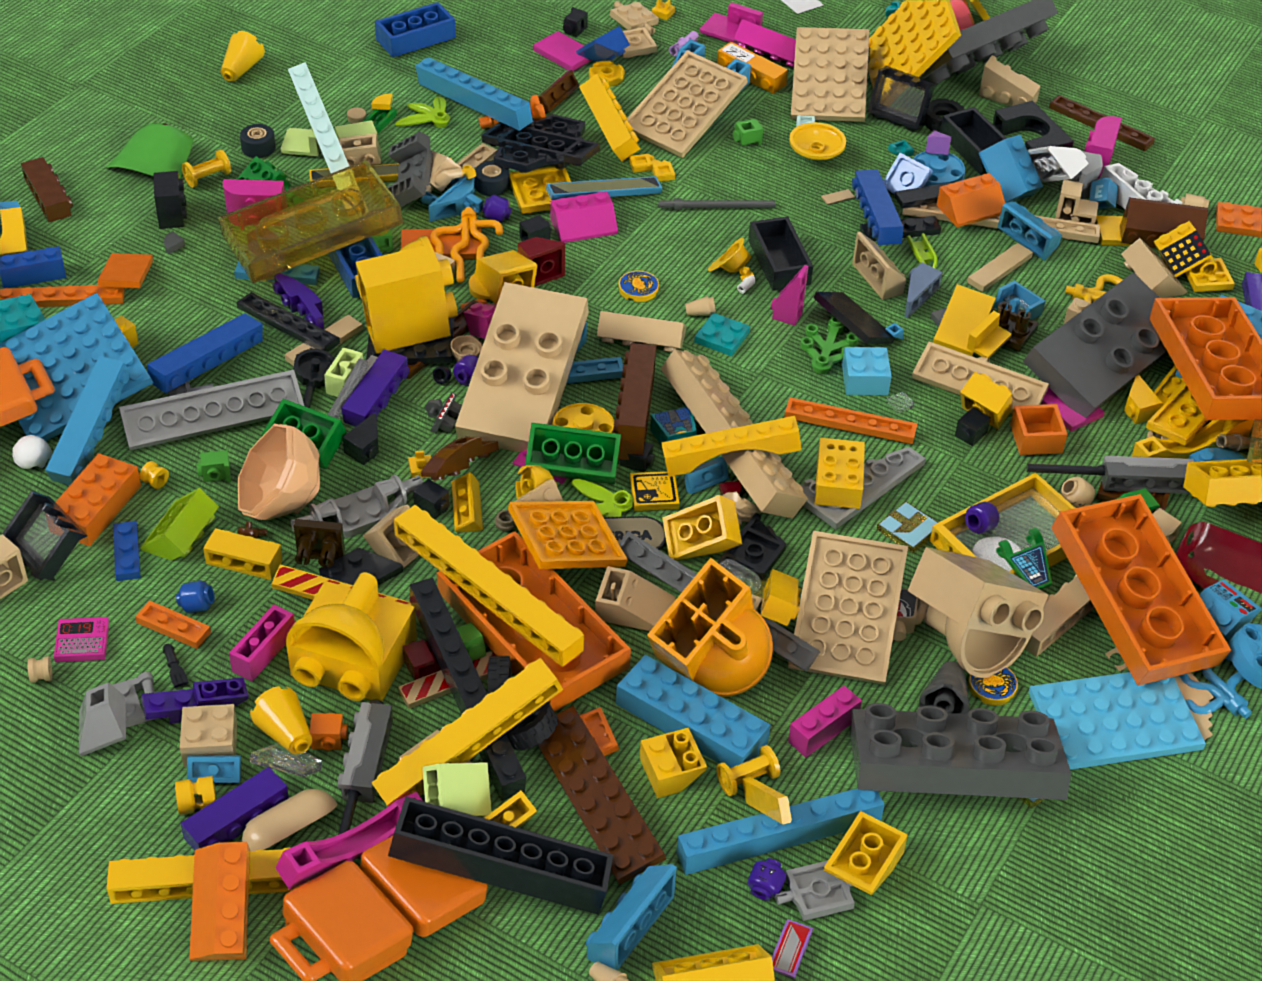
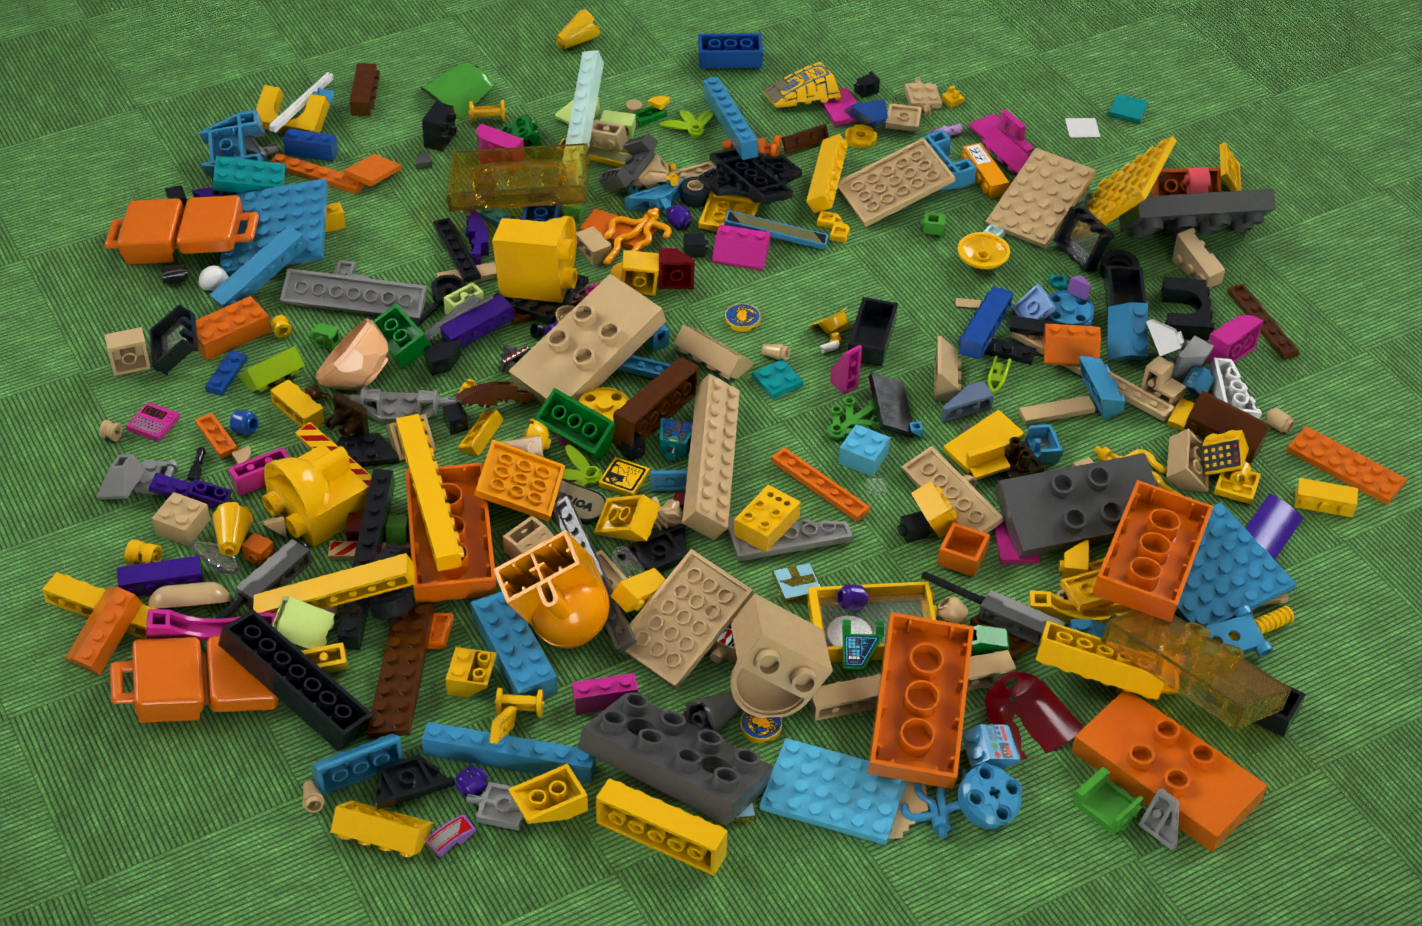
camera: 30 degrees right, 0 degrees up
(205, 352) = (378, 250): blue brick -> none
(220, 636) = (242, 455): none -> tan tile
(222, 767) = (170, 543): dark azure plate -> none
(257, 140) = (542, 102): black wheel -> none
(324, 693) = (276, 524): none -> tan slope
(517, 40) = (804, 85): none -> yellow wedge
(678, 204) = (829, 263): dark grey bar -> none
(687, 453) = (726, 468): yellow arch -> none
(699, 912) = (408, 780): none -> black wing
(1000, 832) = (661, 826): none -> yellow brick

